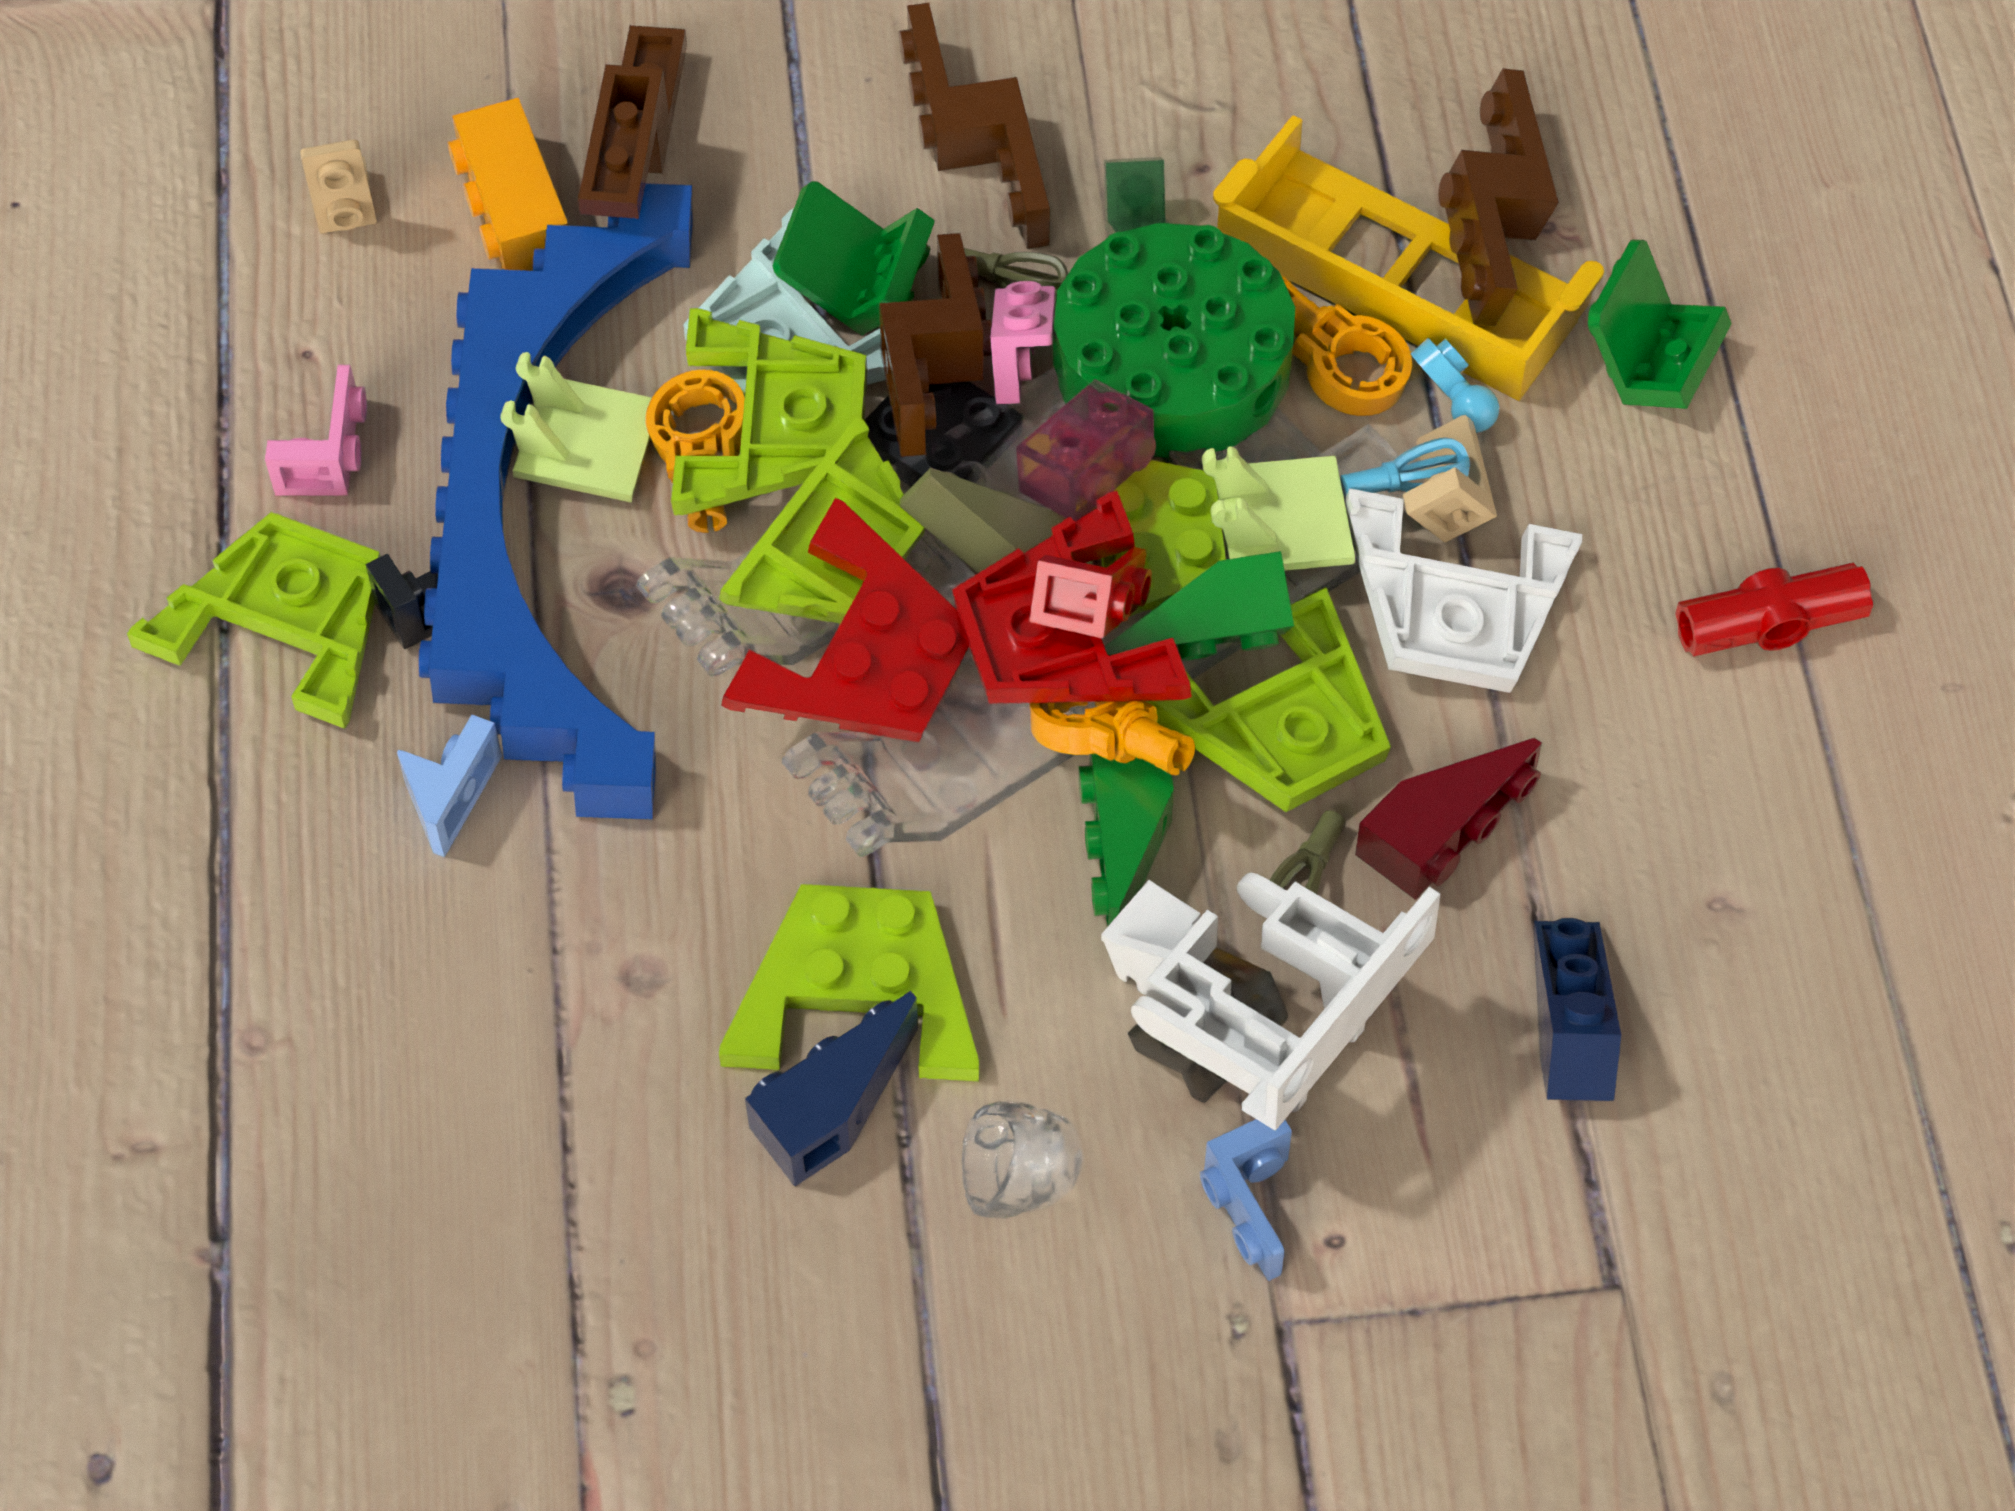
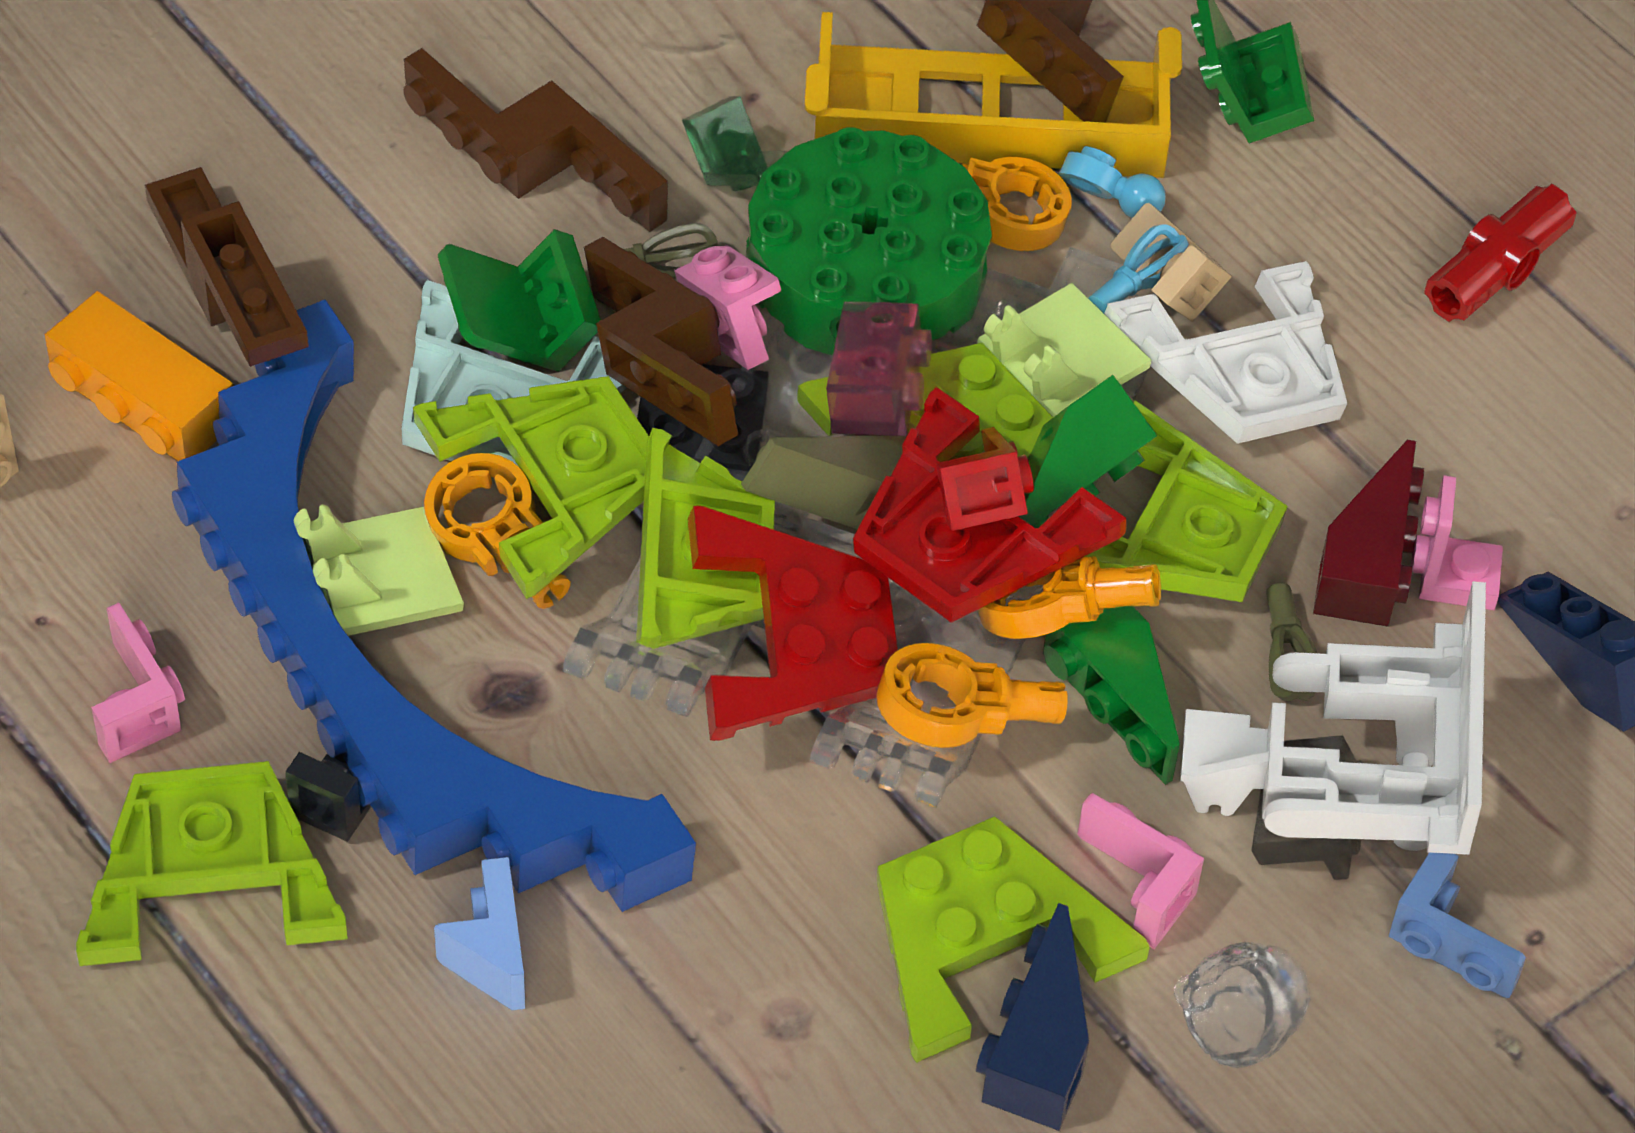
camera: 35 degrees left, 5 degrees down
(972, 788) = (980, 691): none -> light orange pin
(1031, 1031) = (1166, 862): none -> bright pink bracket
(1502, 870) = (1452, 563): none -> bright pink bracket

